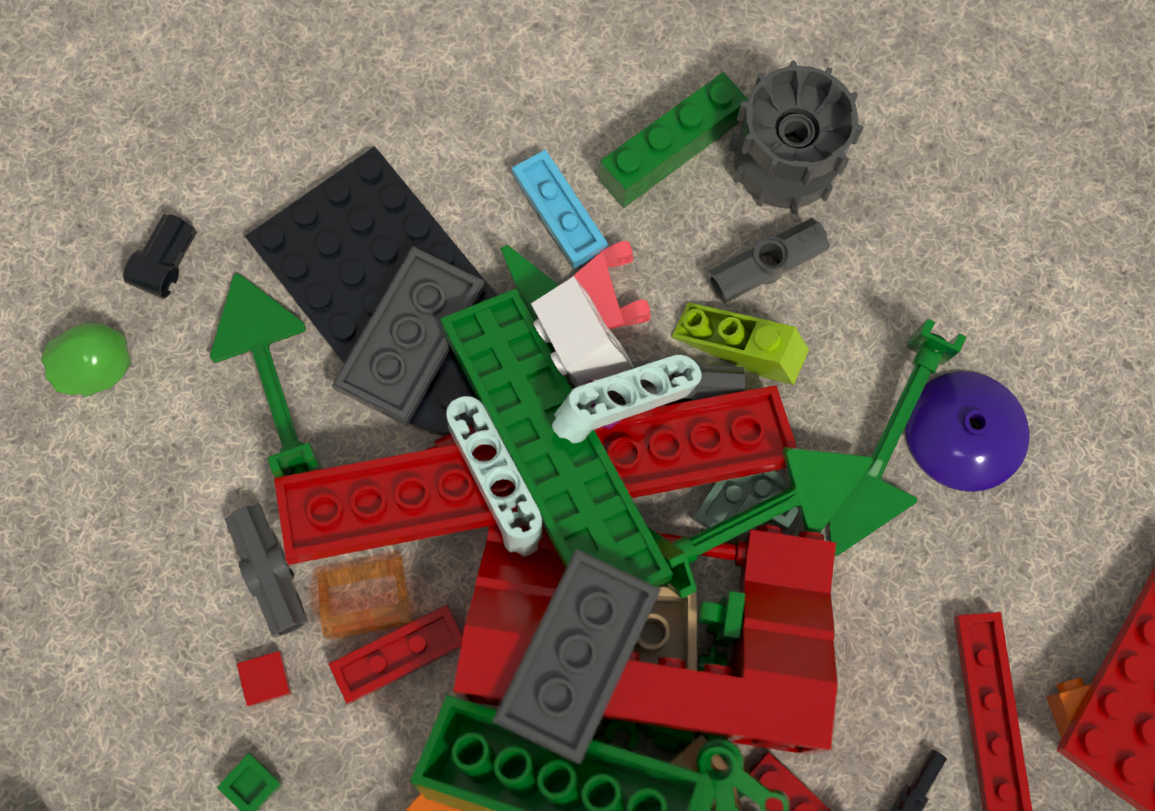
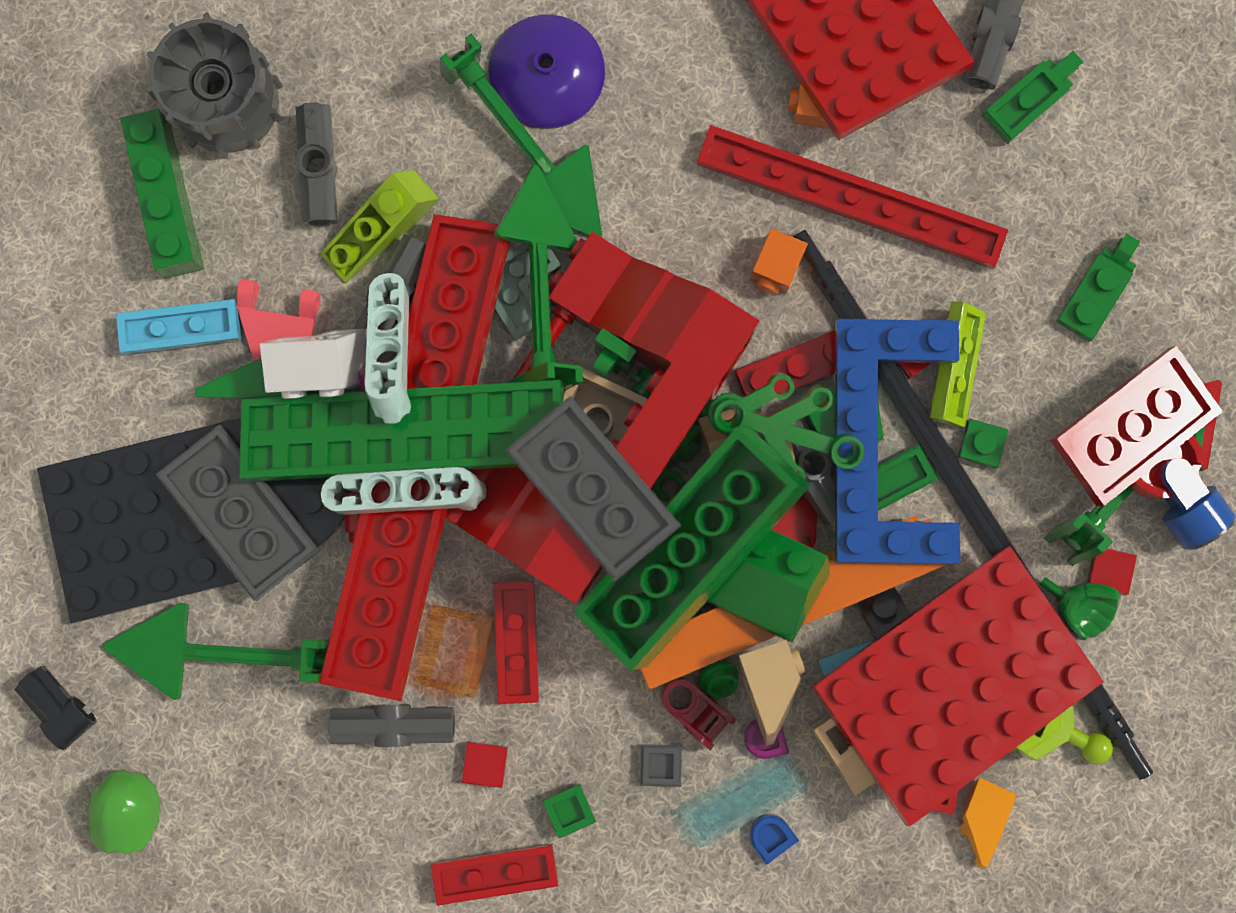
camera: 60 degrees left, 10 degrees up
(157, 739) = (494, 874): none -> red plate
(899, 745) = (778, 262): none -> orange brick

